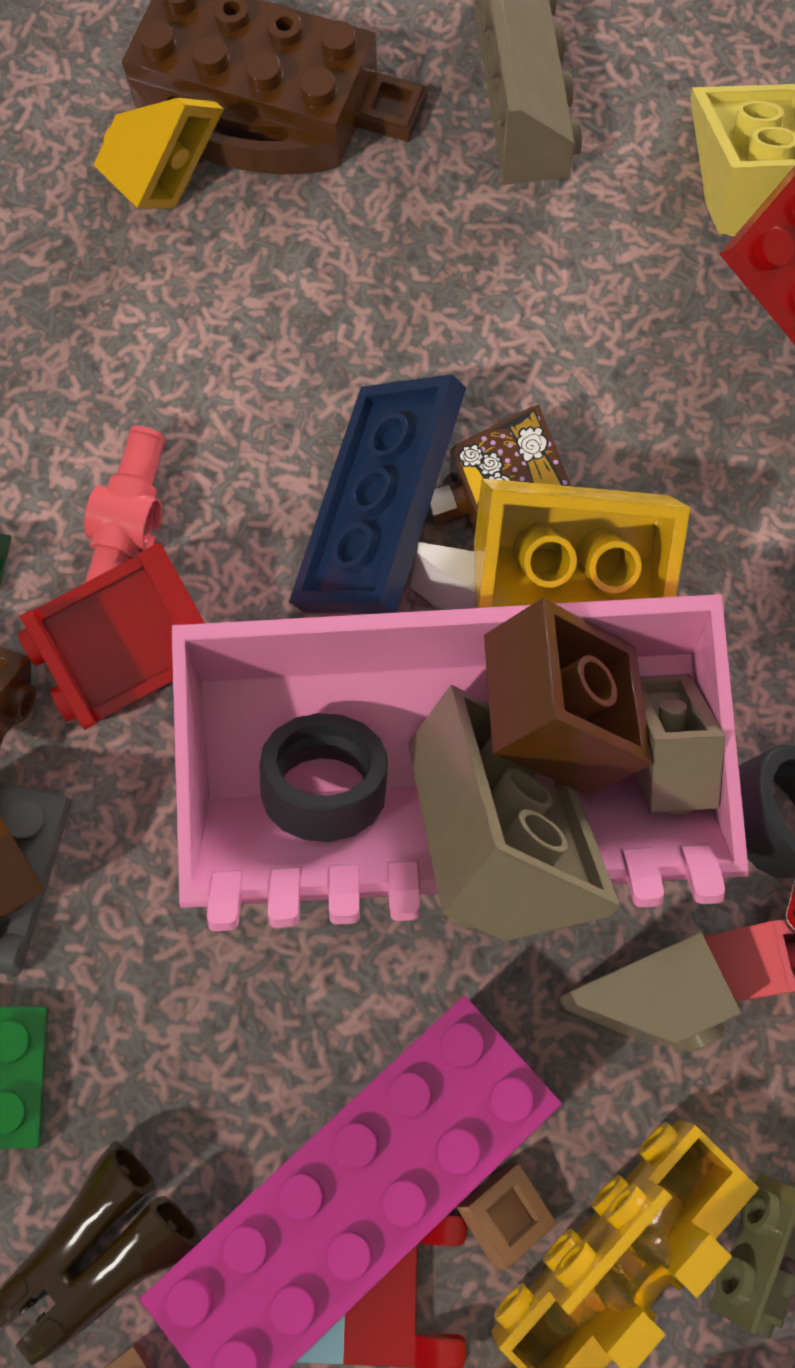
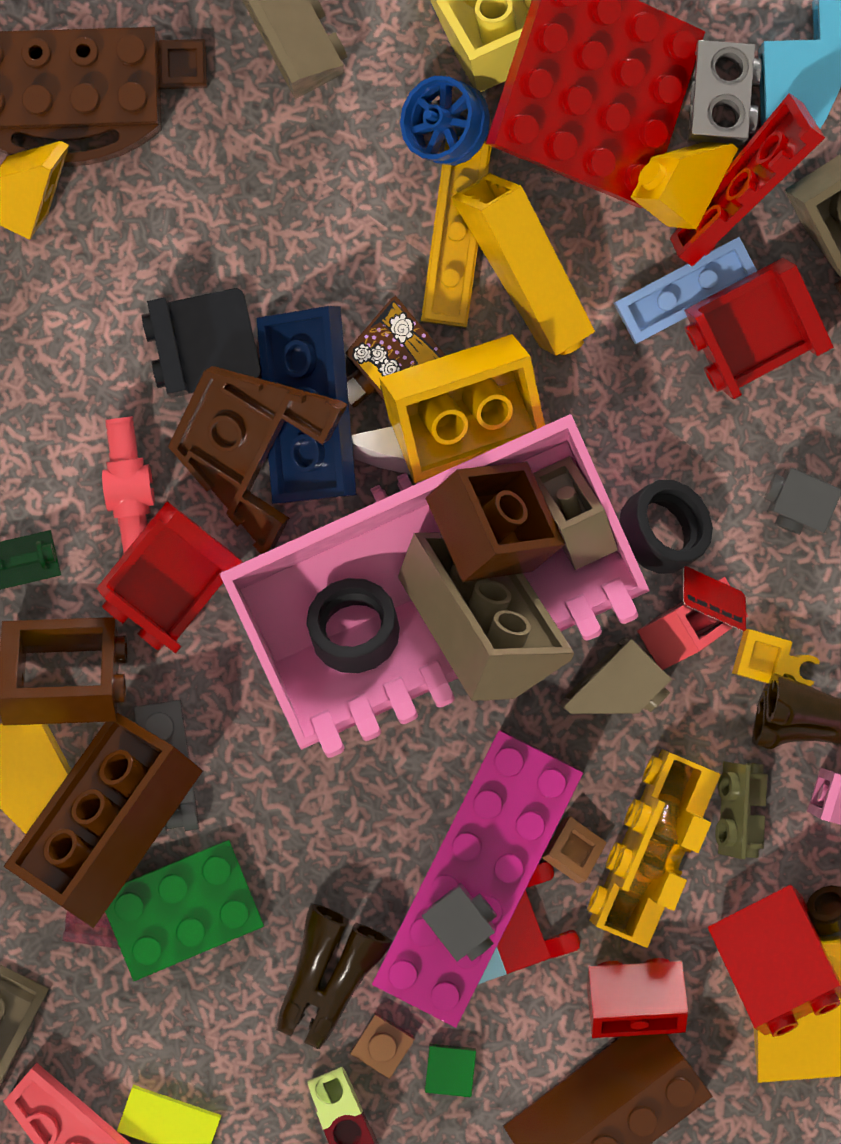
camera: 20 degrees left, 15 degrees up
(277, 489) = (231, 432): none -> reddish brown wing
(280, 387) = (198, 335): none -> black bracket
(301, 1260) = (462, 922): none -> dark grey brick
(635, 380) = (453, 246): none -> yellow tile
(666, 235) = (444, 120): none -> blue wheel
(715, 423) = (524, 262): none -> yellow slope

